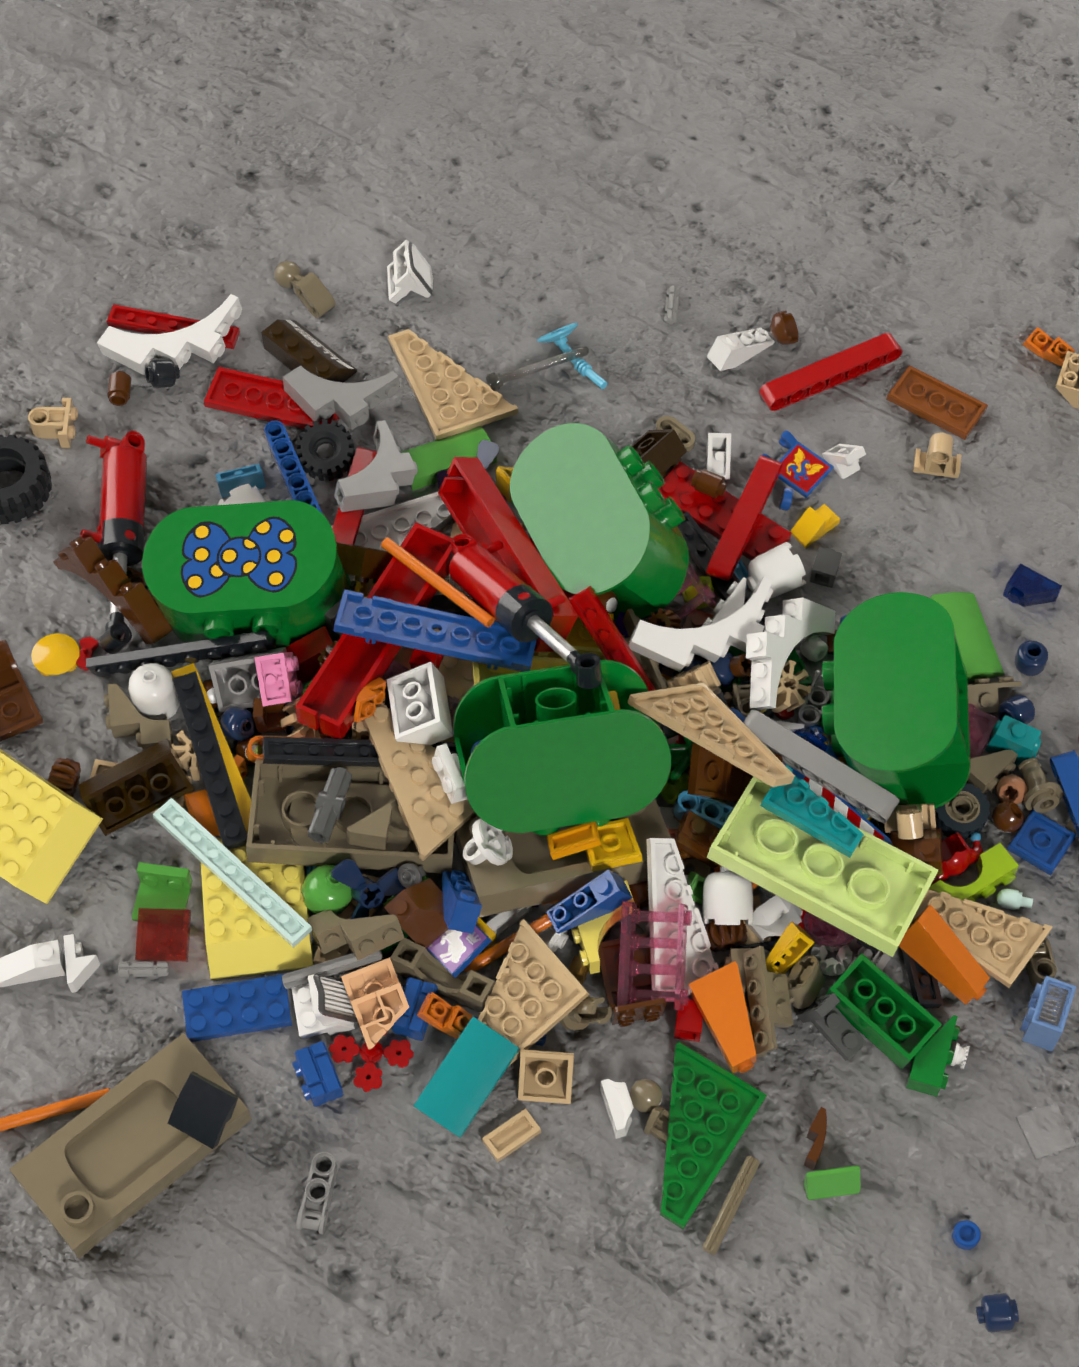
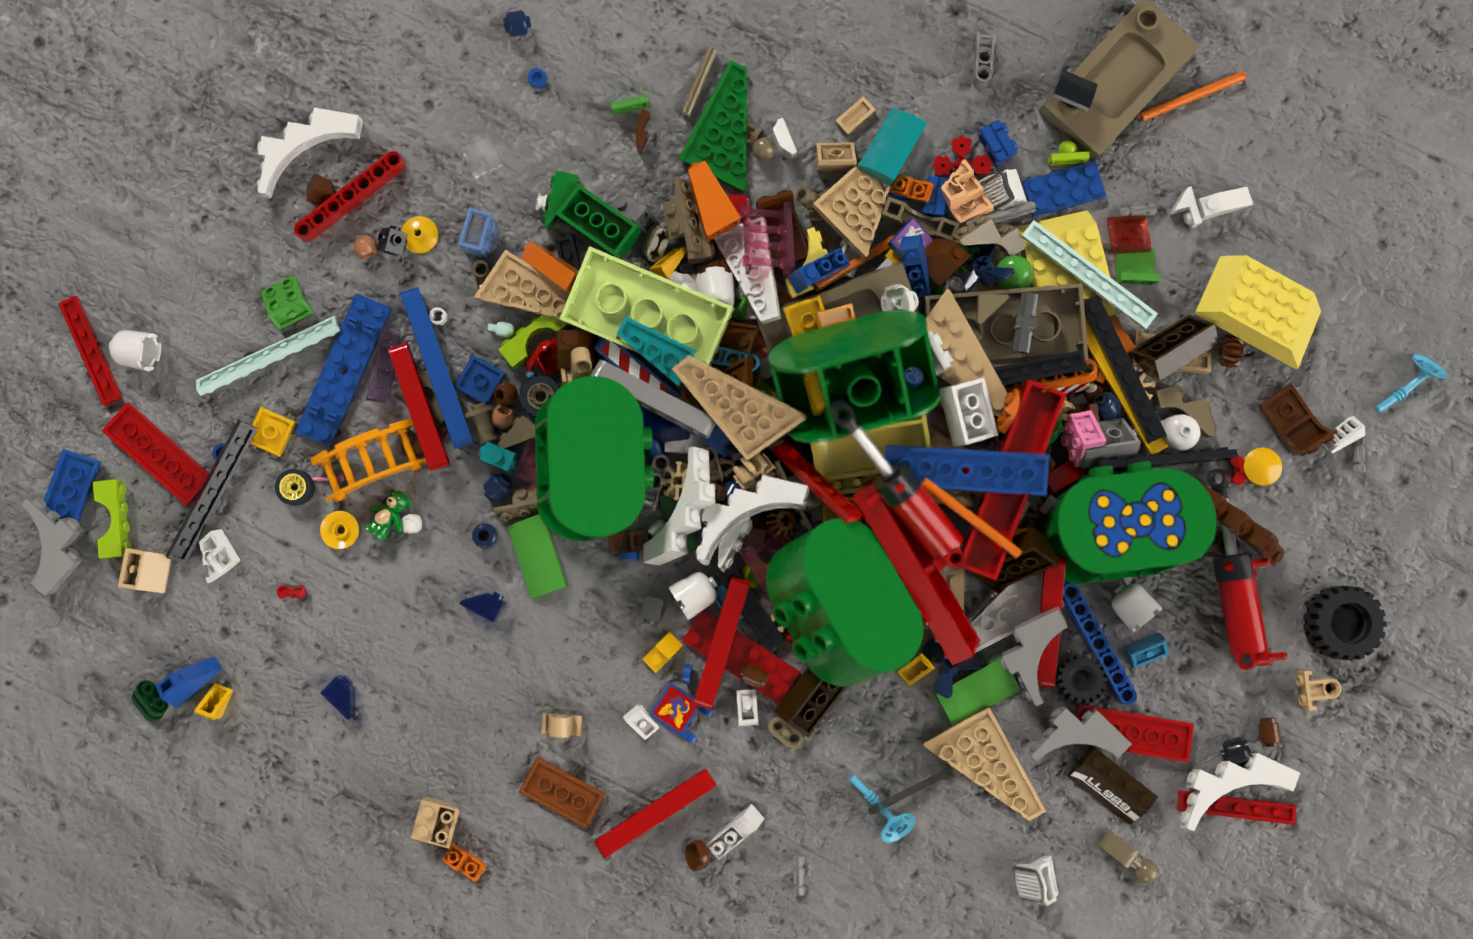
camera: 175 degrees right, 25 degrees up
(223, 1047) = (1068, 155): none -> lime tile

